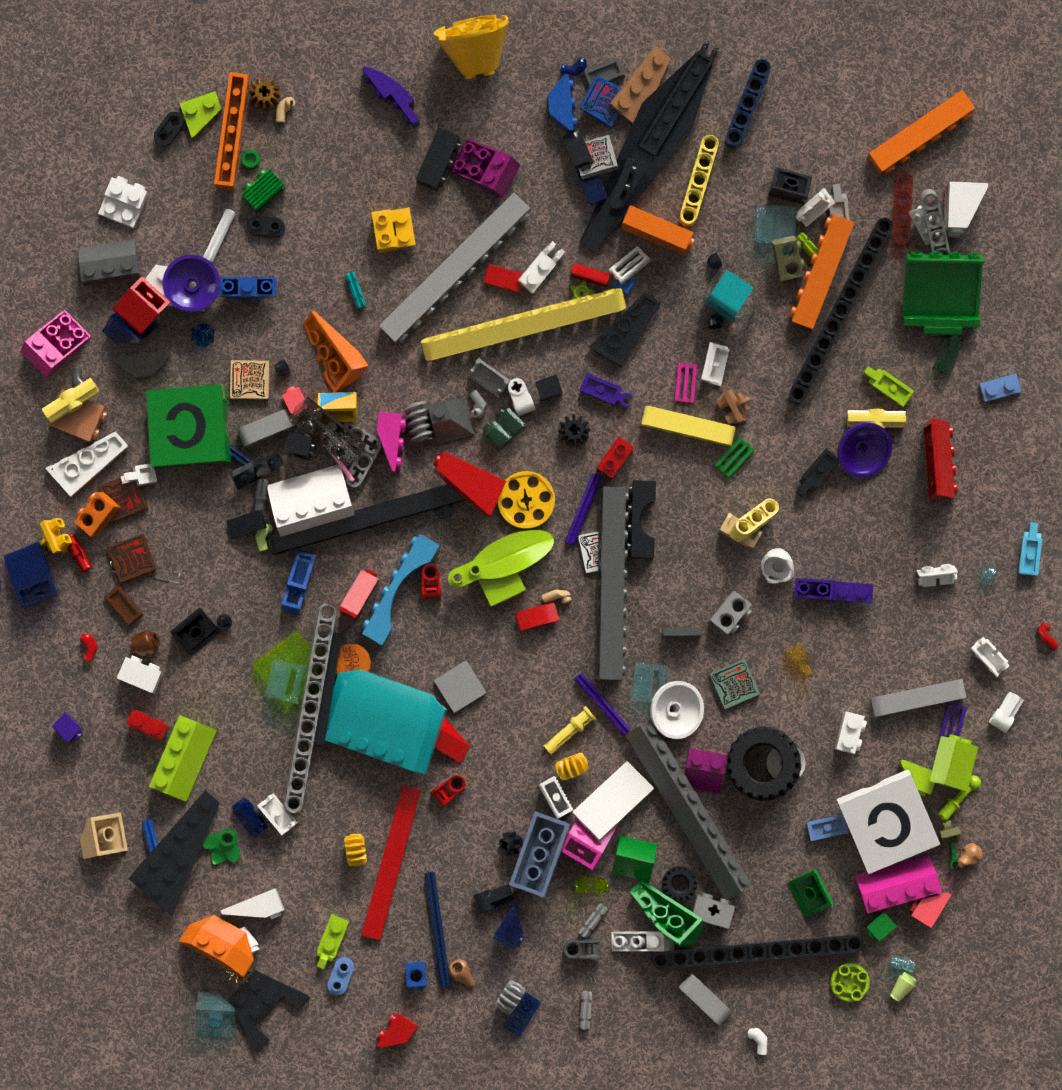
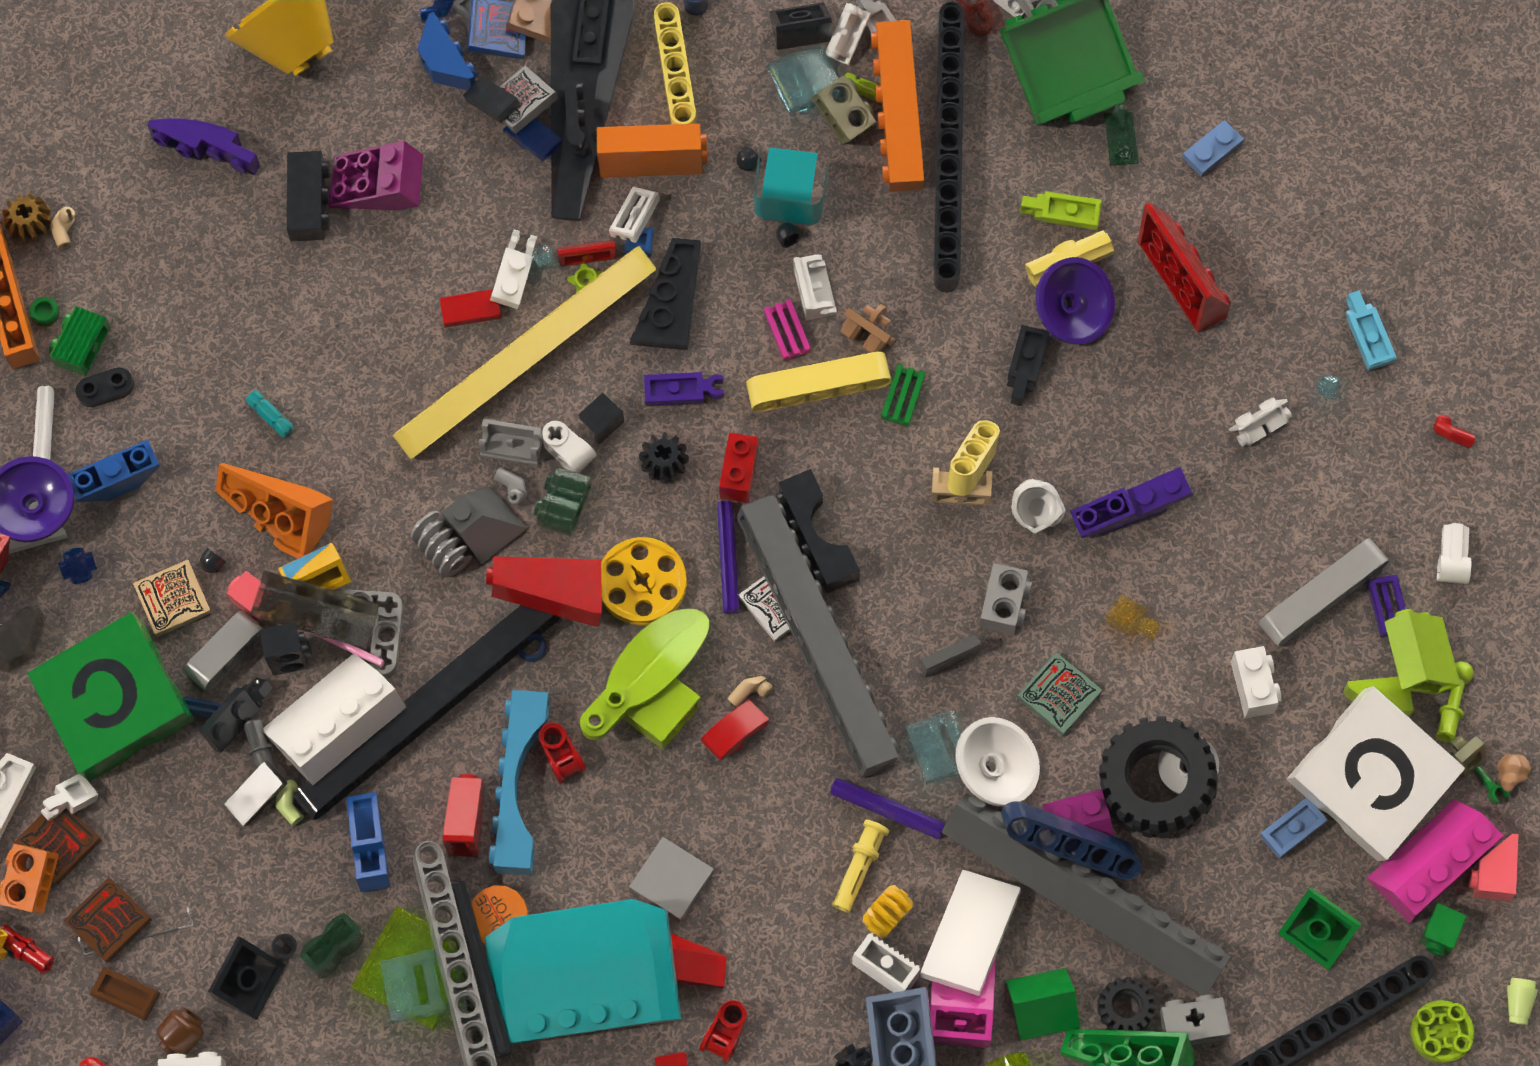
camera: 20 degrees left, 15 degrees down
(245, 638) = (326, 951): none -> clear green brick
(384, 229) = (275, 319): yellow brick -> none
(389, 431) = (410, 578): dark pink slope -> none
(455, 268) = (394, 325): light grey brick -> none
(563, 266) = (544, 254): none -> clear light blue hinge
(694, 778) = (1063, 830): none -> dark blue beam
(902, 963) = (1503, 968): clear light blue pin -> none
(995, 663) = (1378, 488): white hinge -> none

